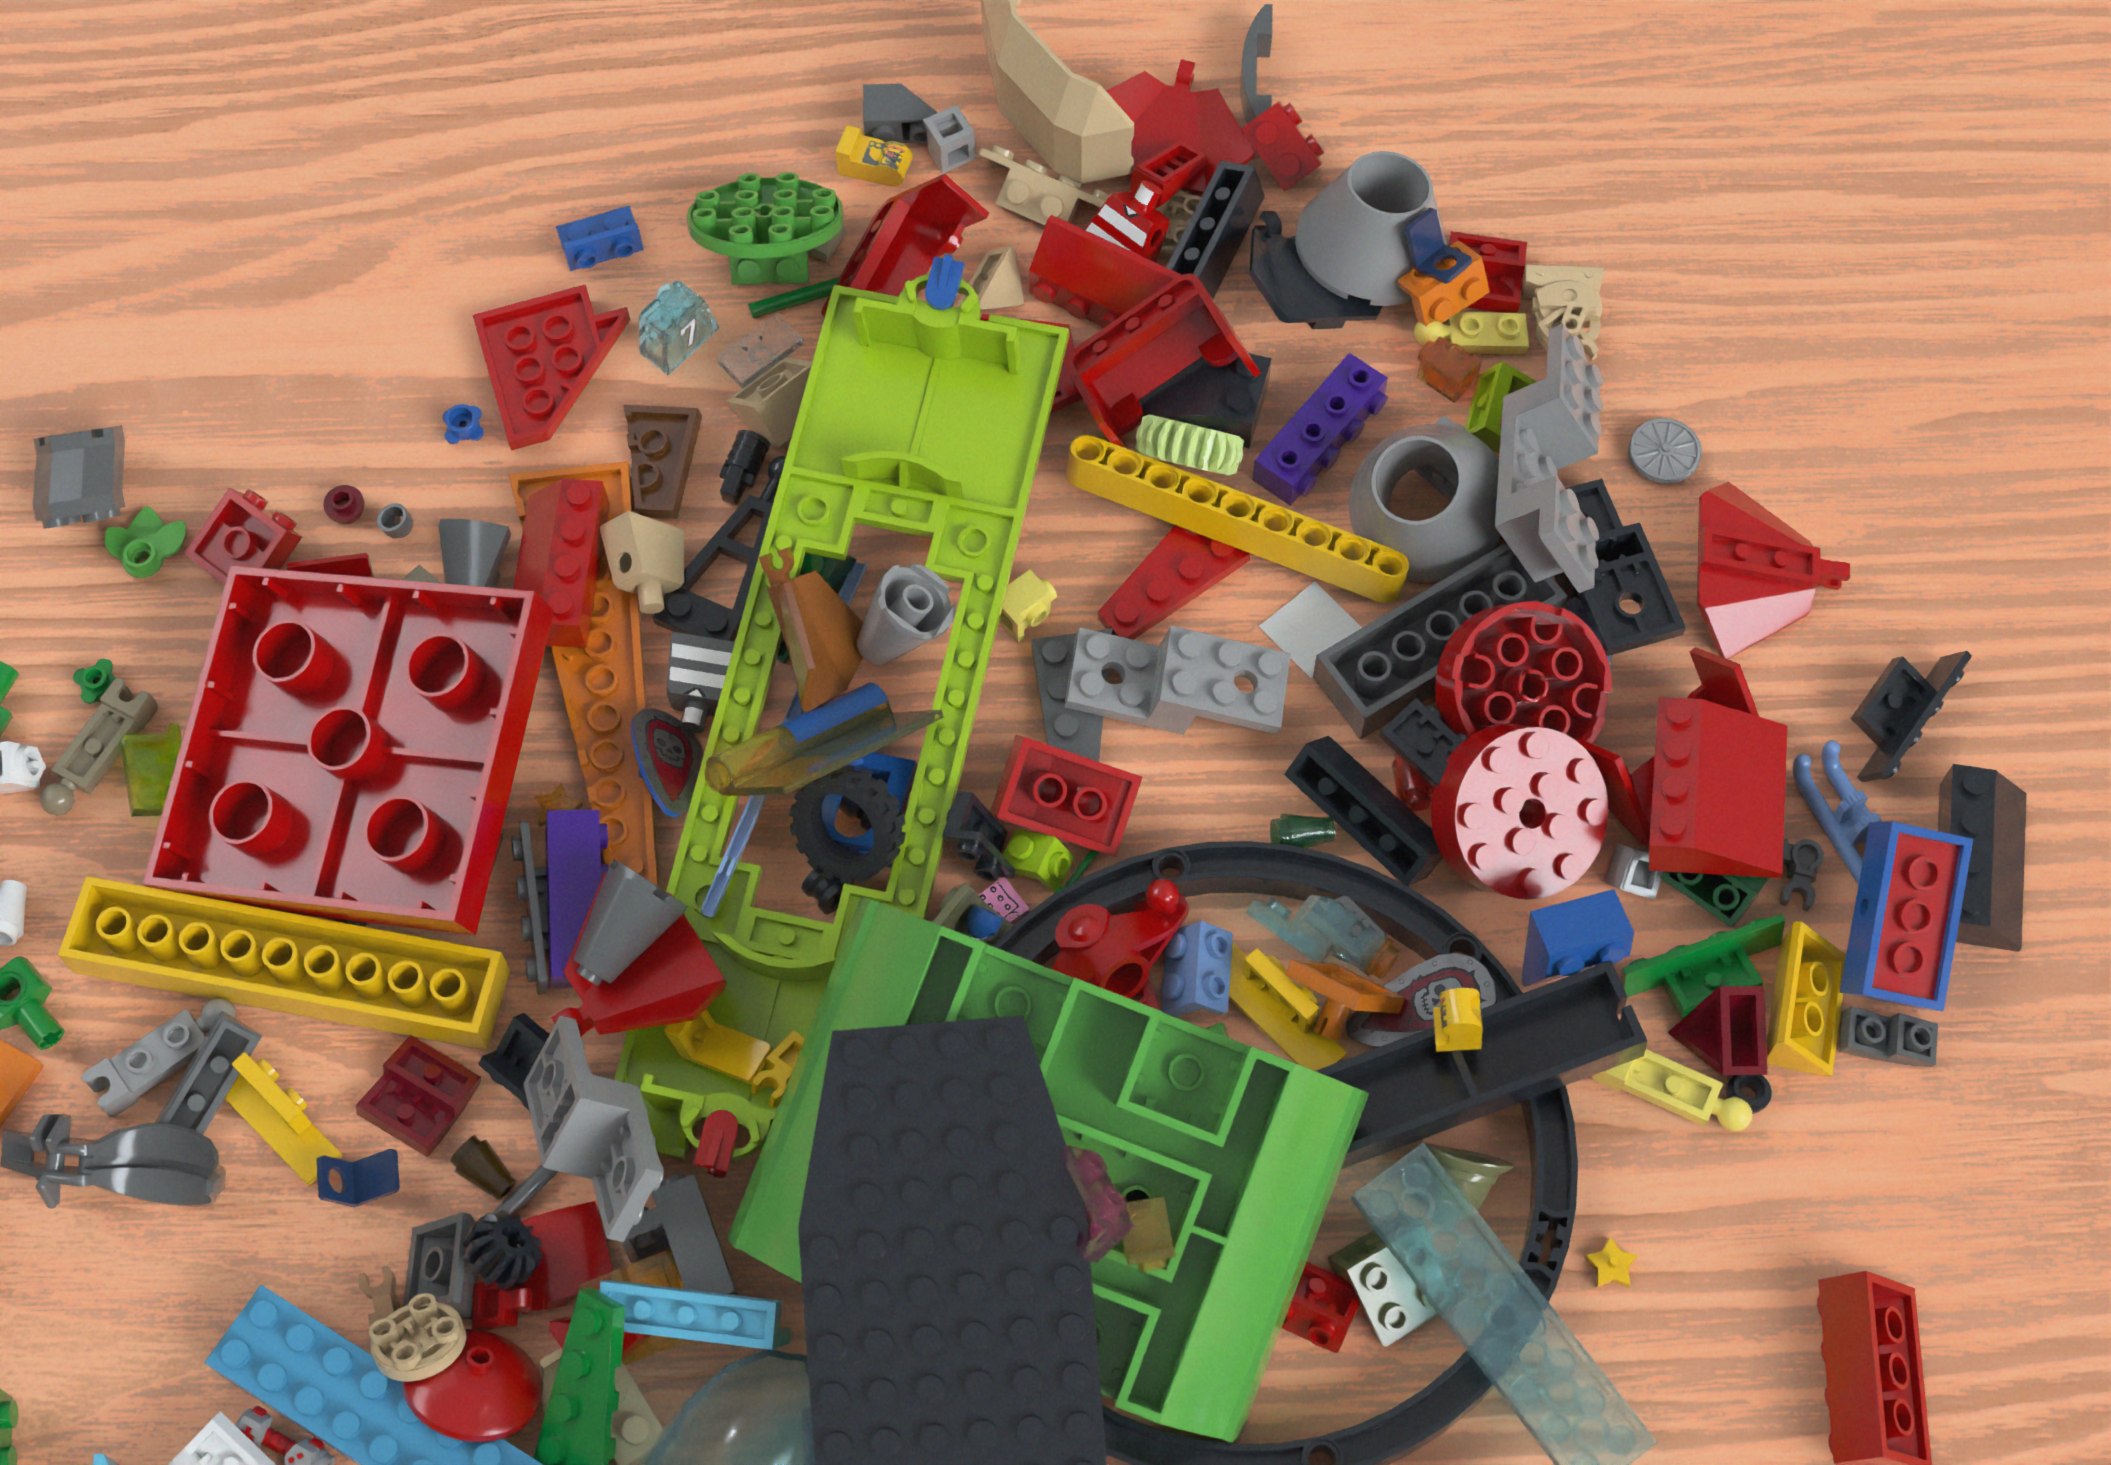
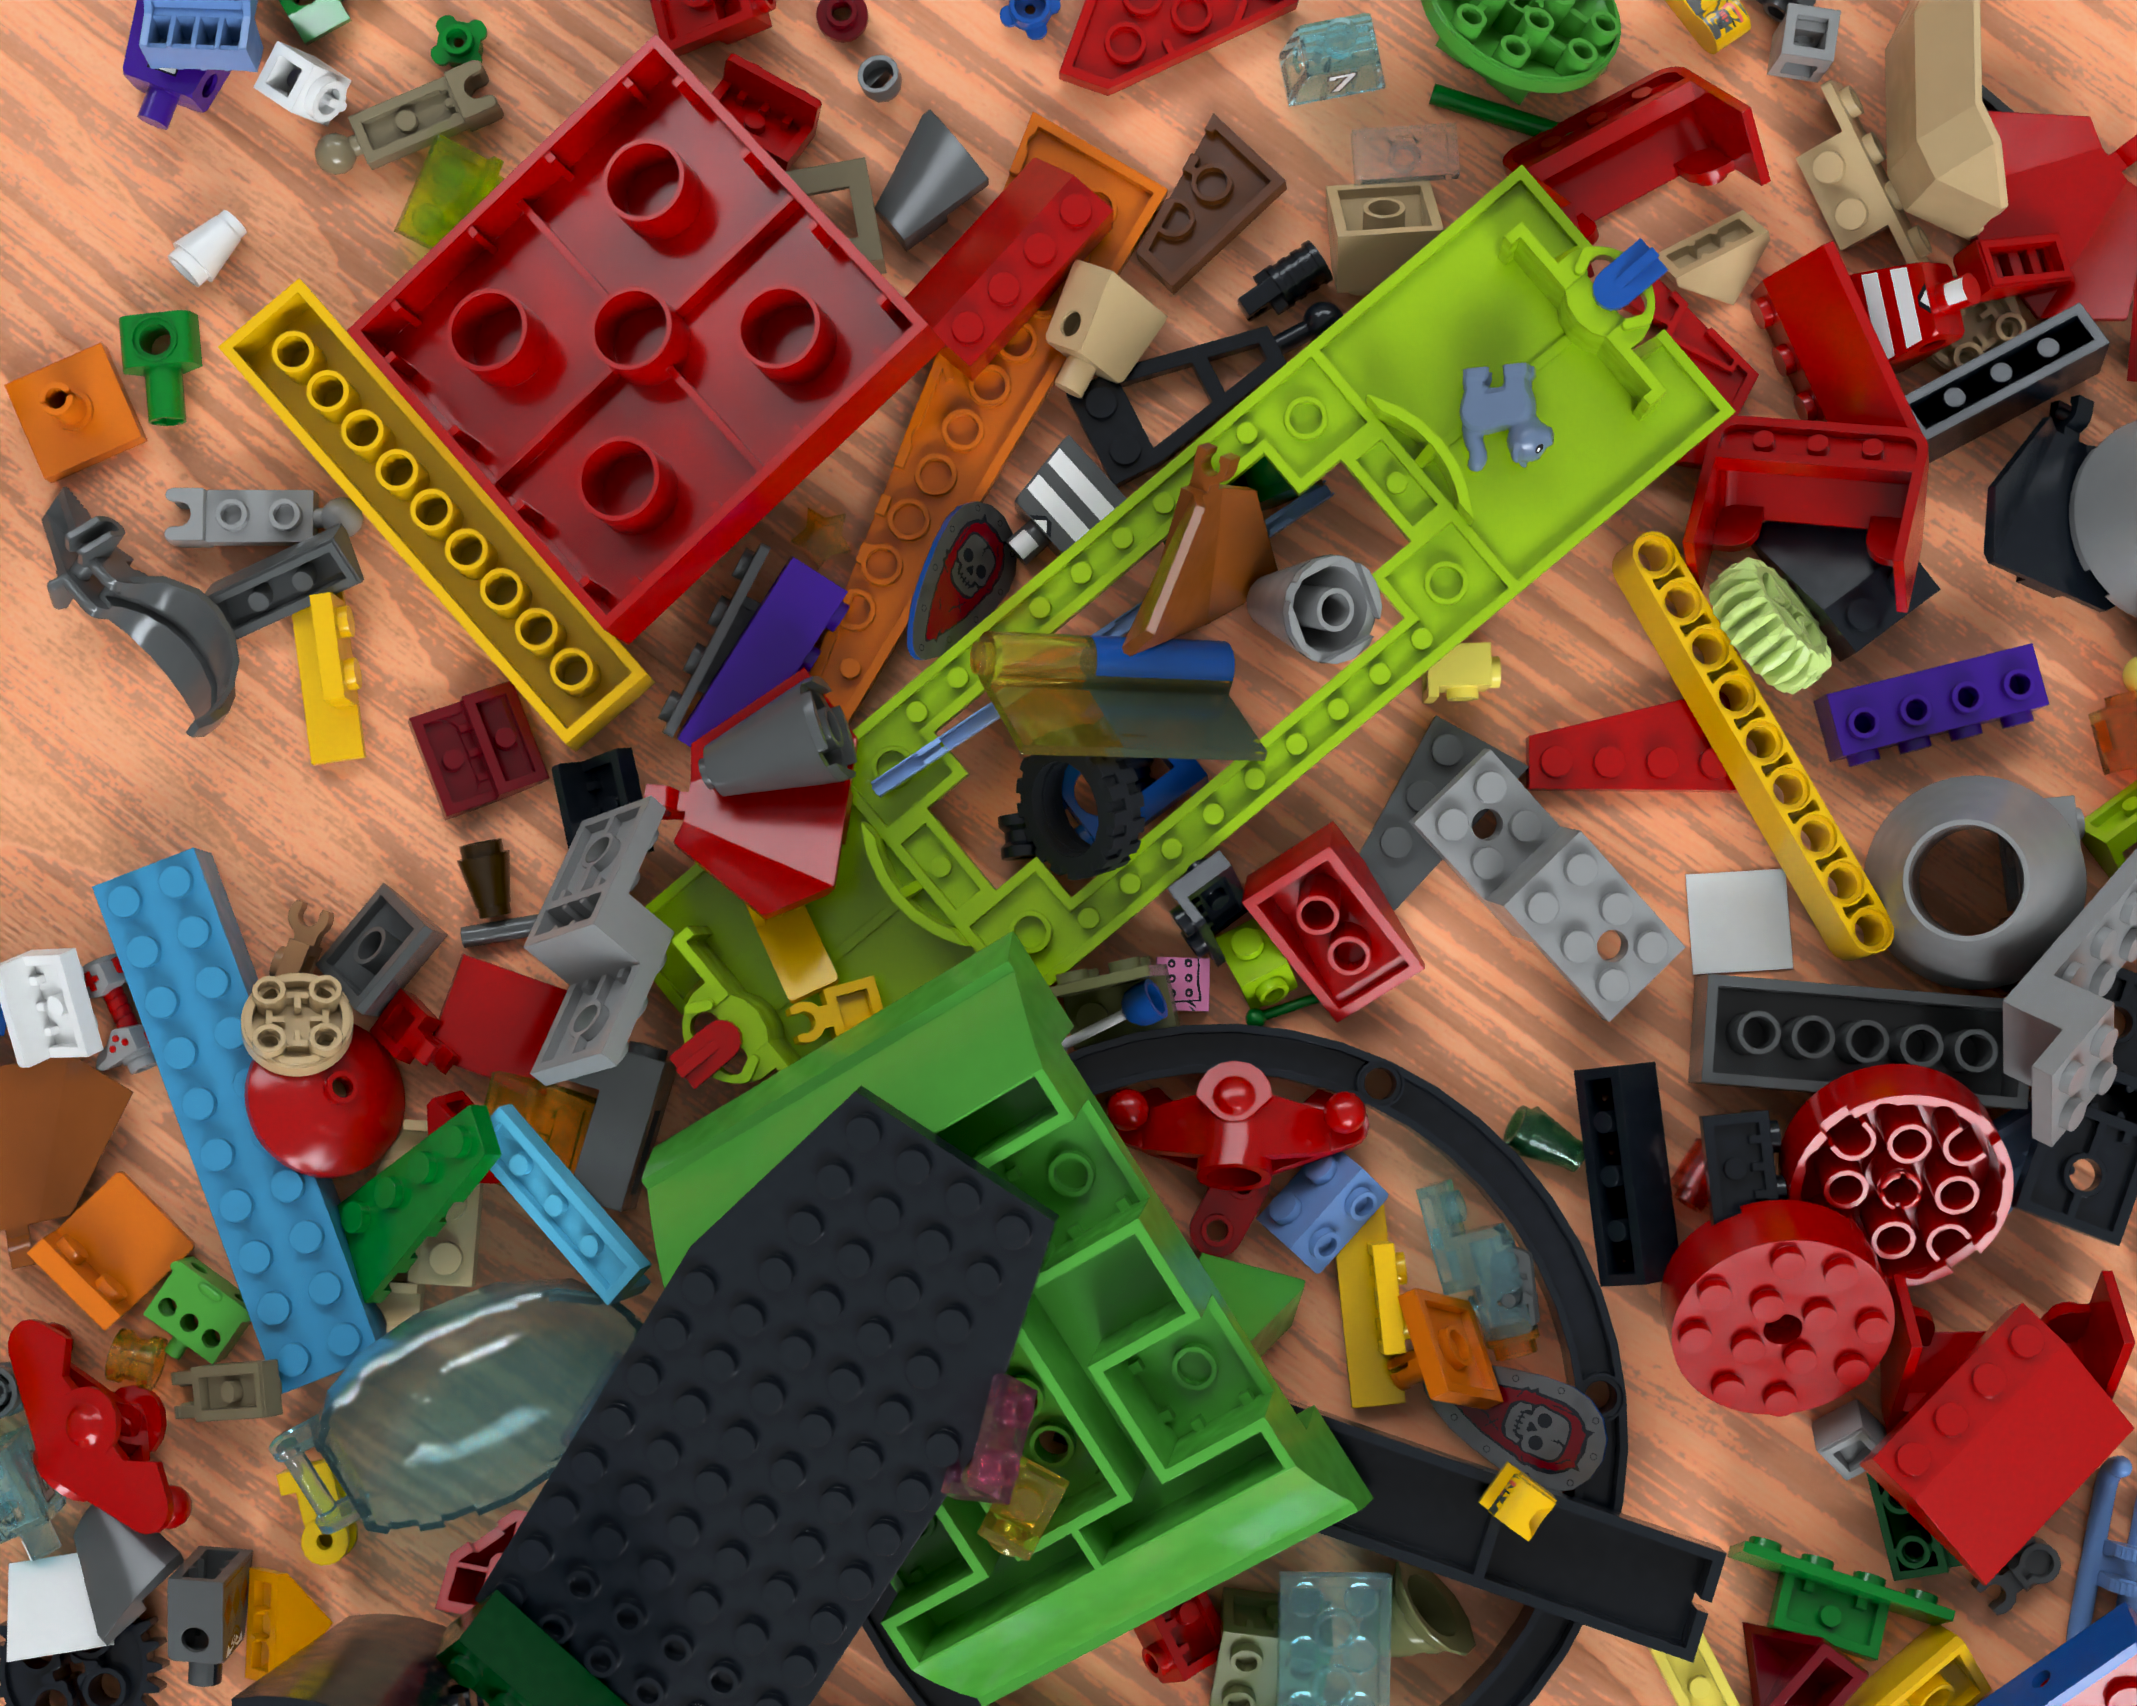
camera: 35 degrees right, 20 degrees up
(361, 1180) = (366, 800): dark blue bracket -> none
(502, 1250) = (437, 991): black gear -> none
(929, 416) = (1502, 408): none -> sand blue animal
(1575, 937) = (1714, 1498): blue slope -> none

